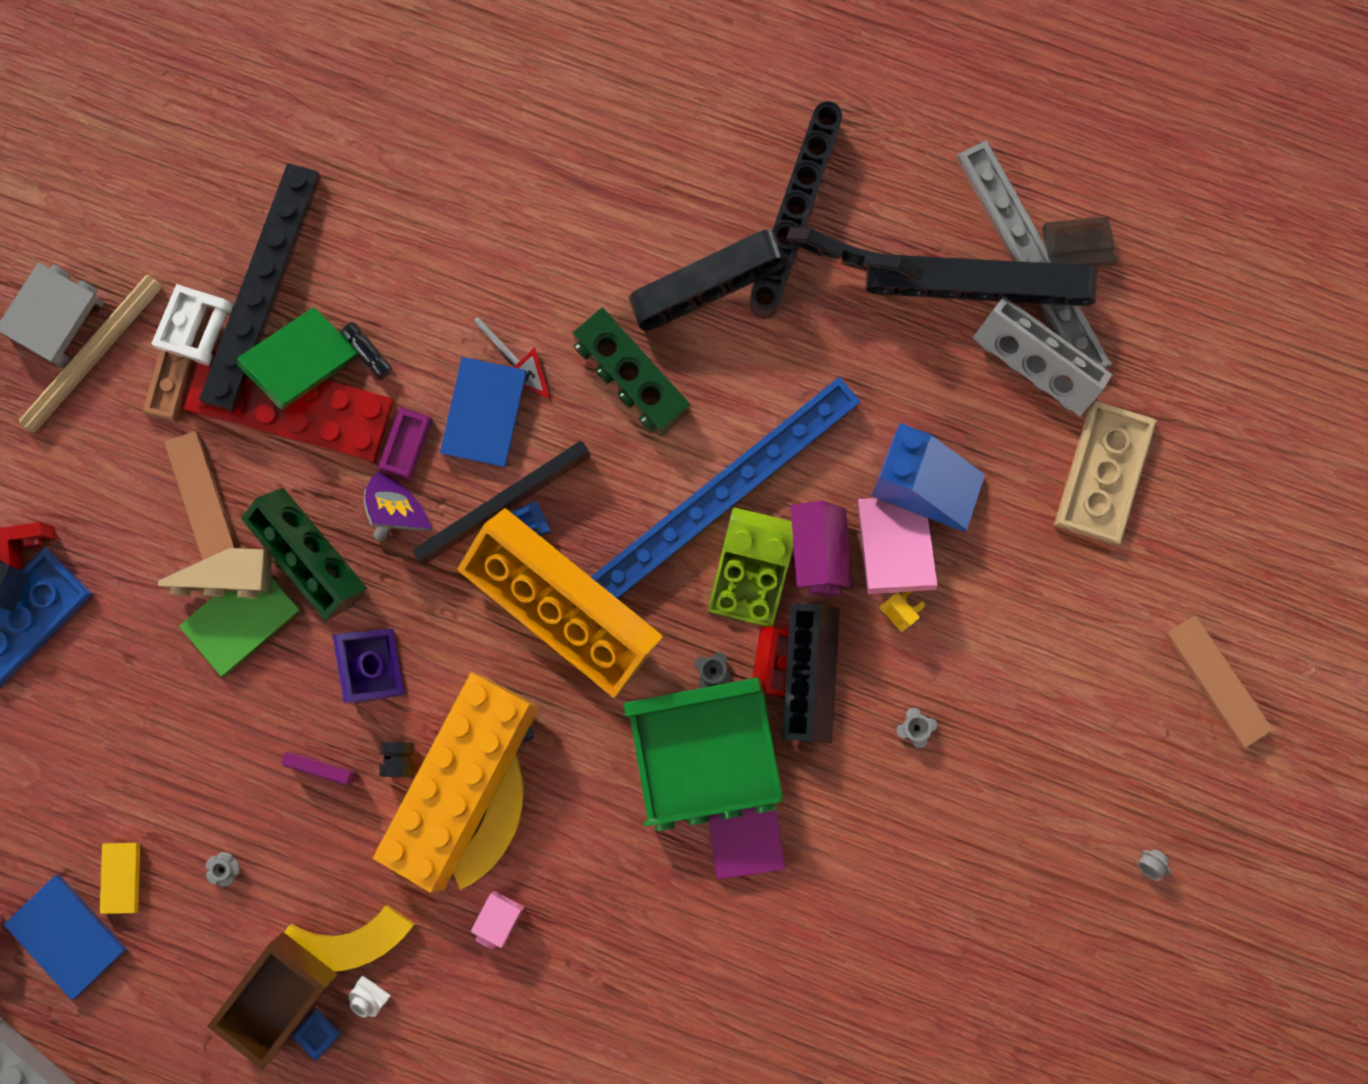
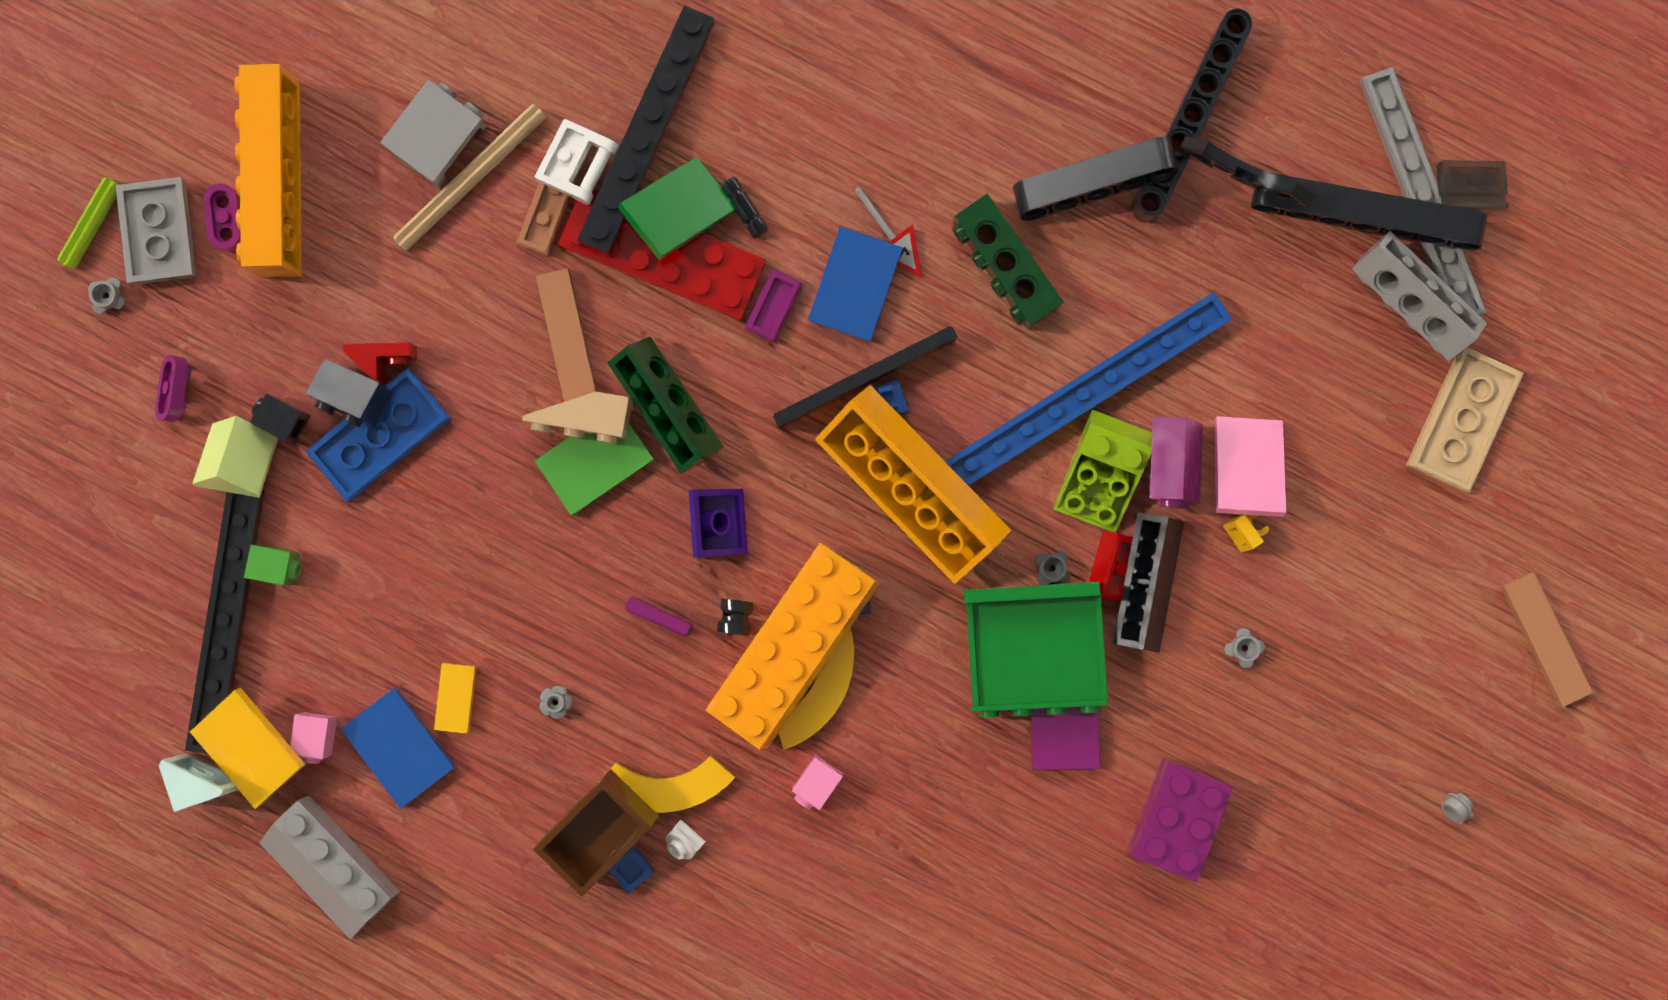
camera: 10 degrees right, 5 degrees up
(392, 506) = (756, 369): dark purple shield -> none
(872, 913) = (1179, 820): none -> magenta brick
(928, 479) = (1288, 405): blue slope -> none

